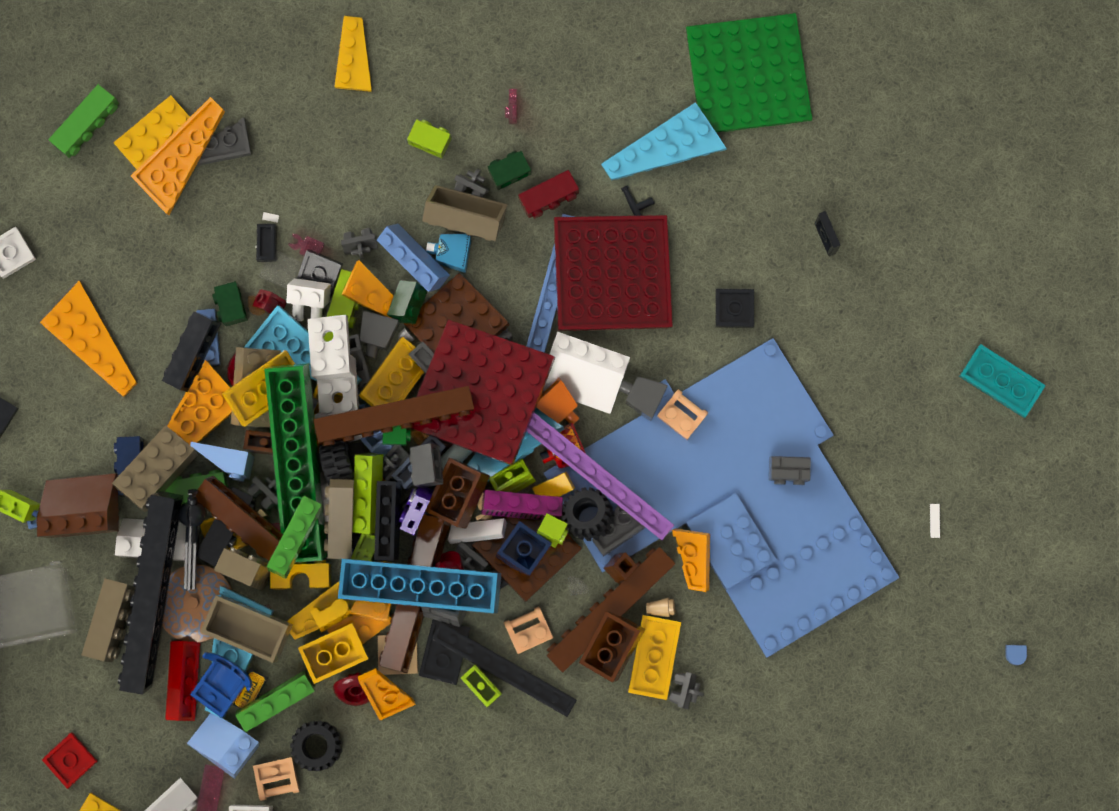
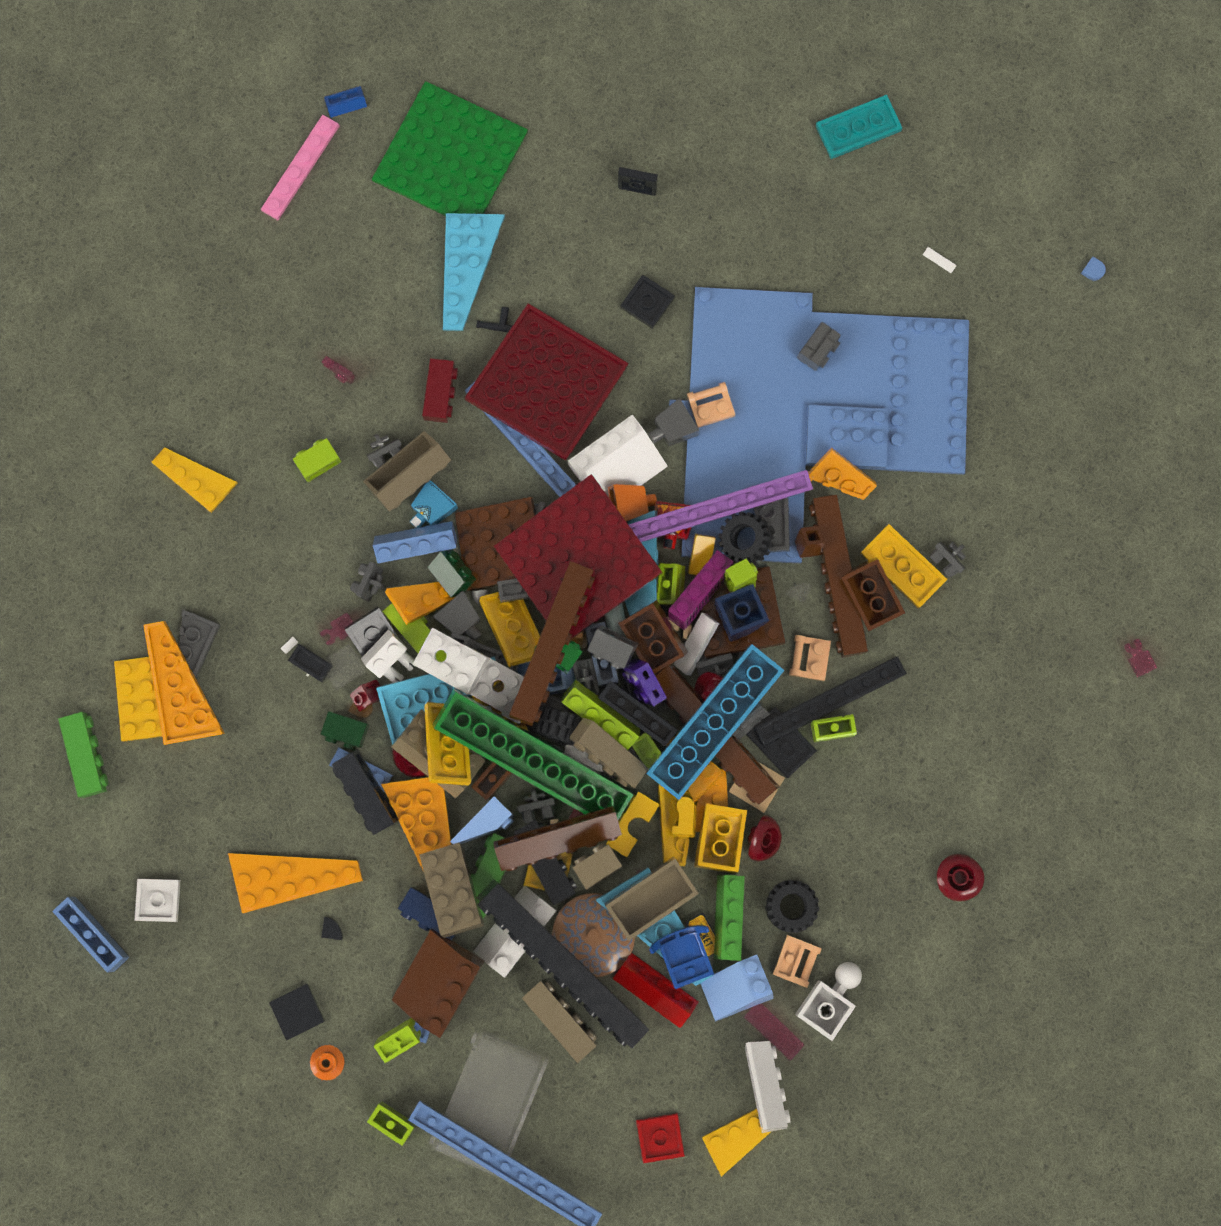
camera: 55 degrees left, 0 degrees up
(70, 398) = (331, 929): none -> black tile
(191, 515) = (519, 882): black piece -> none
(294, 537) = (601, 800): bright green brick -> none
(384, 694) = (787, 816): light orange wing -> none
(509, 169) = (393, 409): dark green brick -> none
(661, 607) = (865, 532): tan cone -> none

